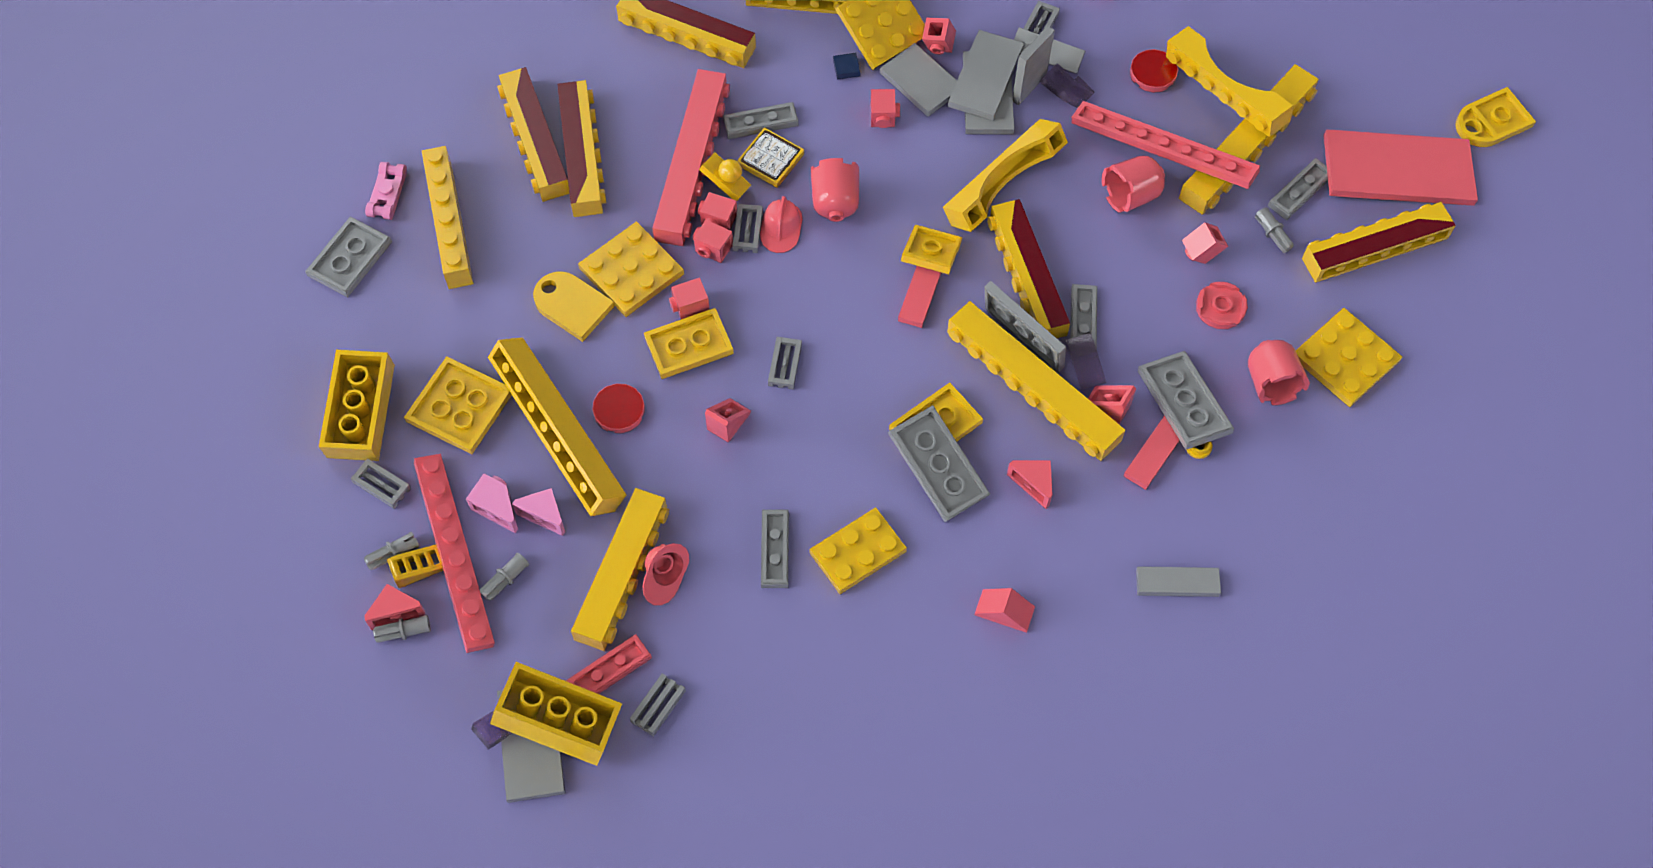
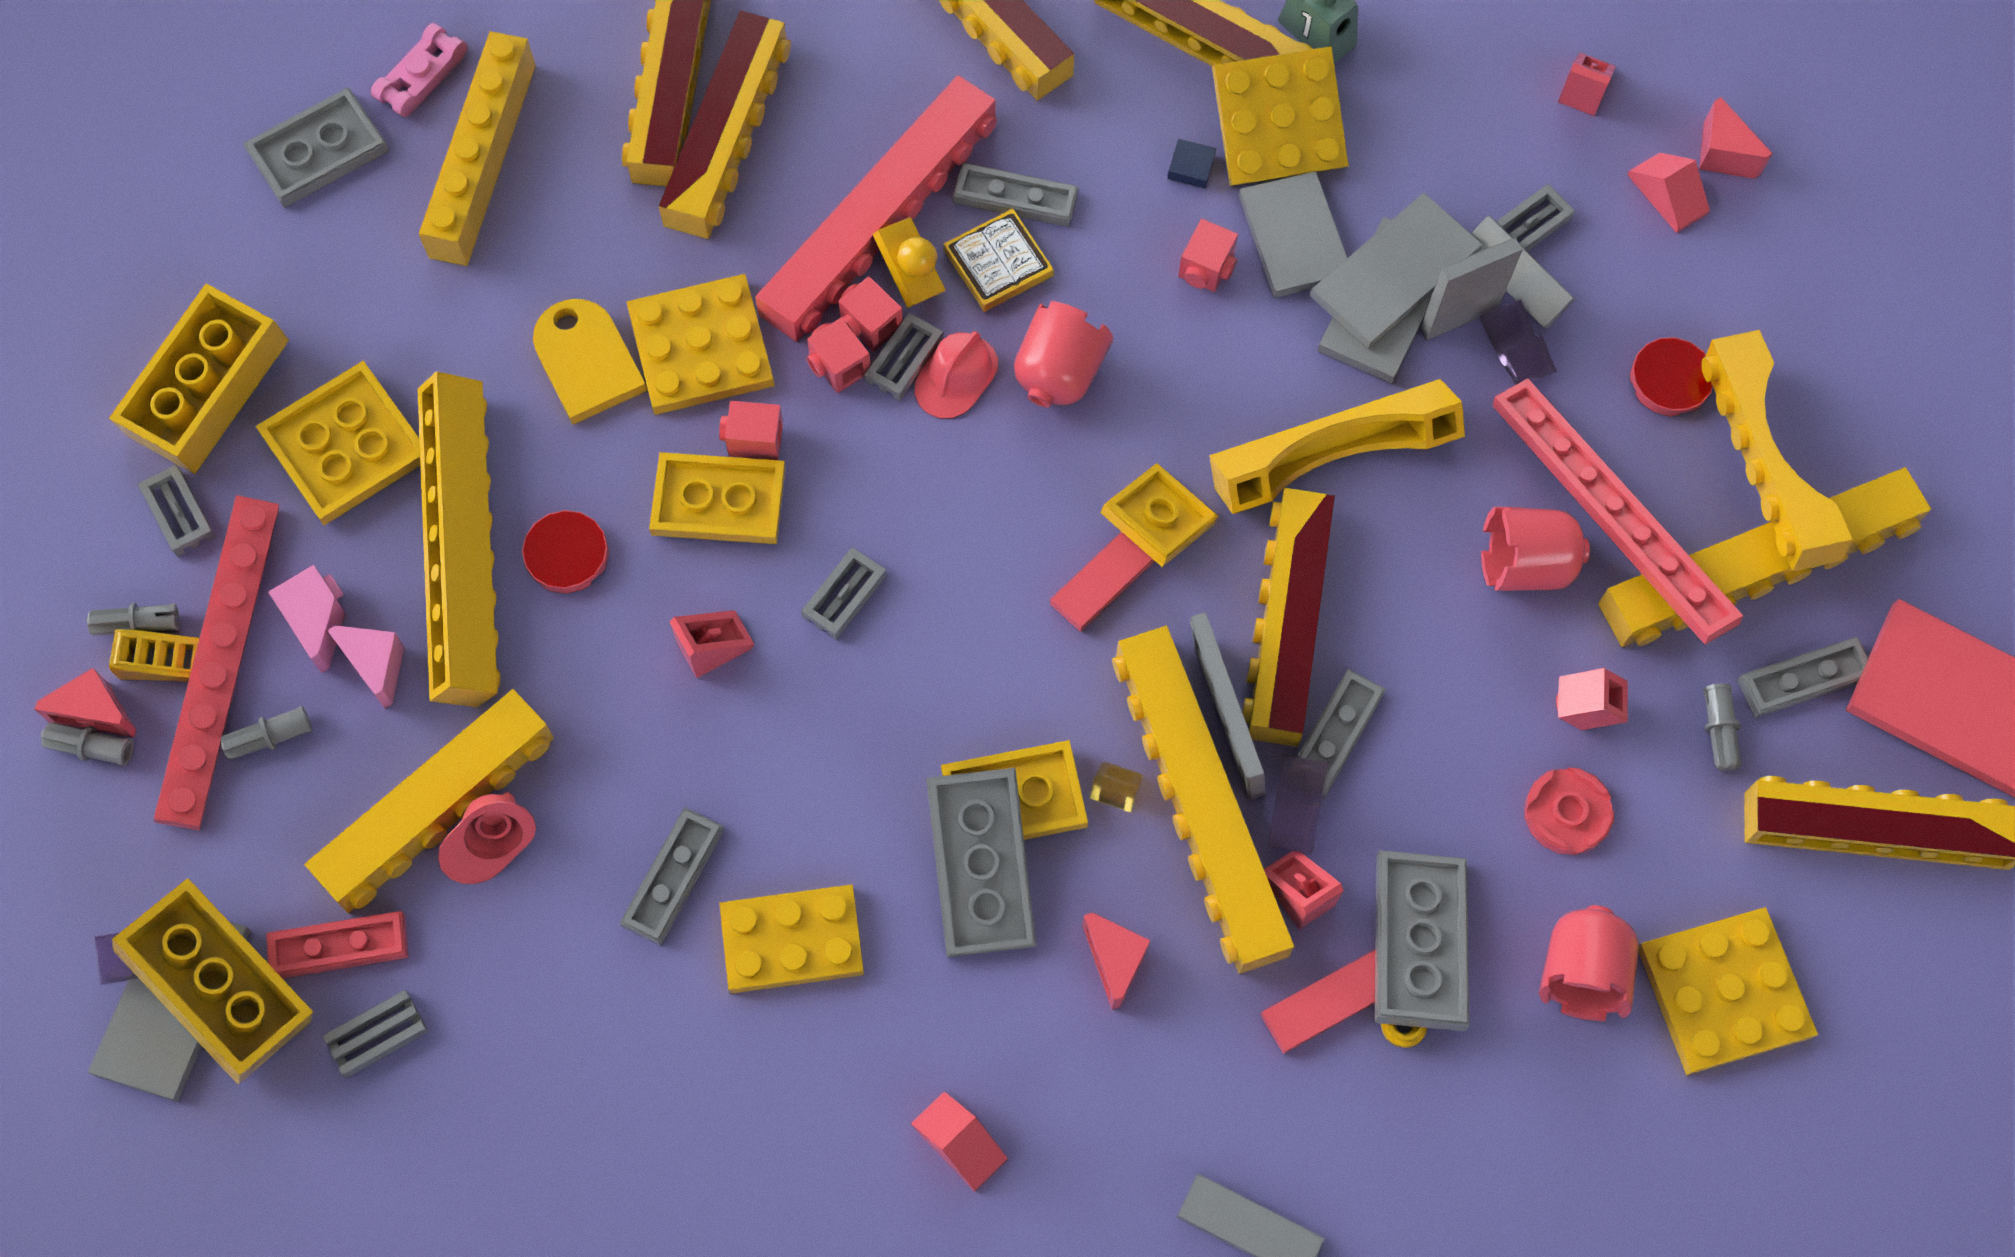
camera: 25 degrees right, 5 degrees up
(939, 35) = (1355, 176): coral brick -> none
(986, 396) = (1116, 786): none -> clear yellow slope

